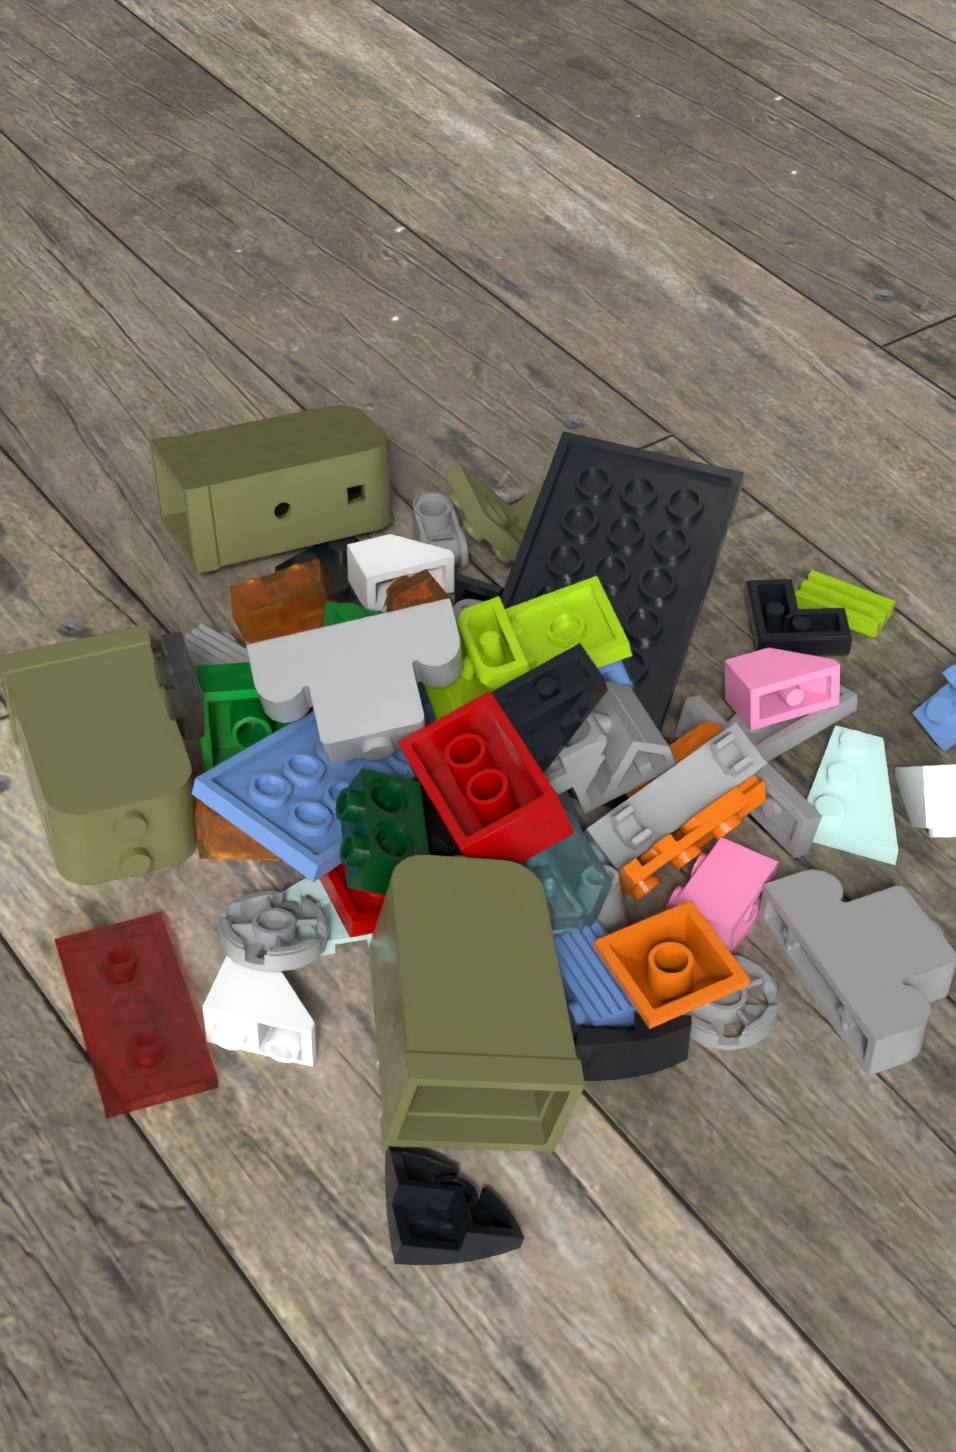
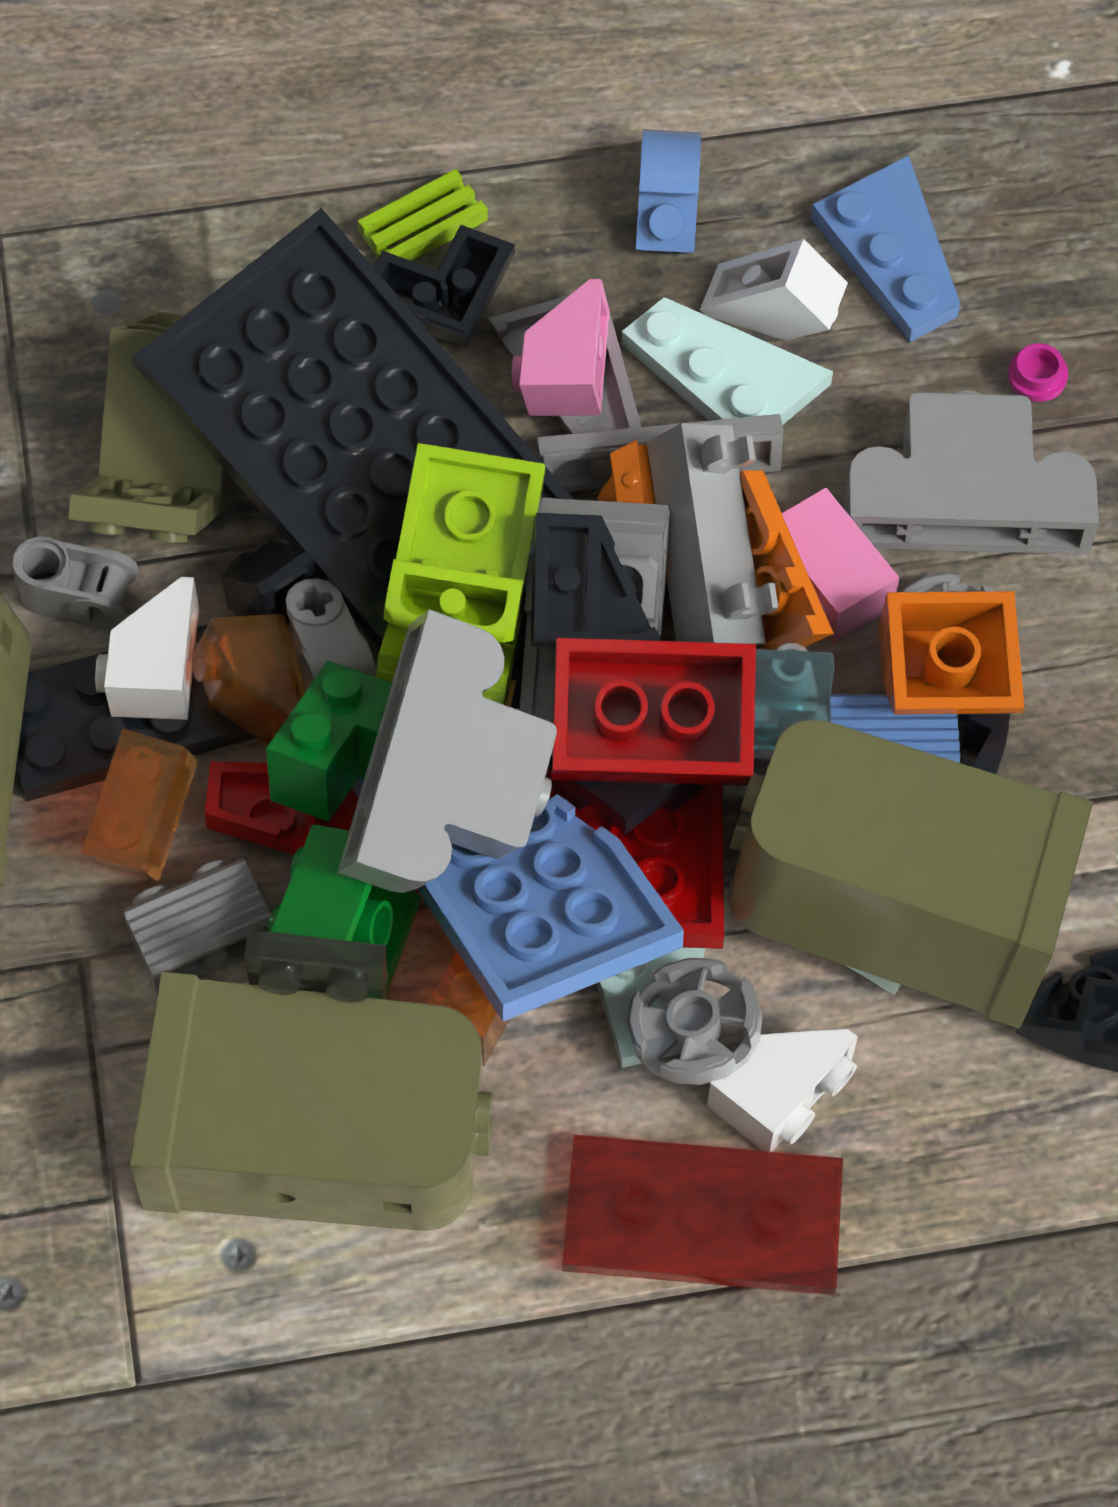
camera: 65 degrees left, 20 degrees up
(379, 828) = (668, 844): dark green brick -> none

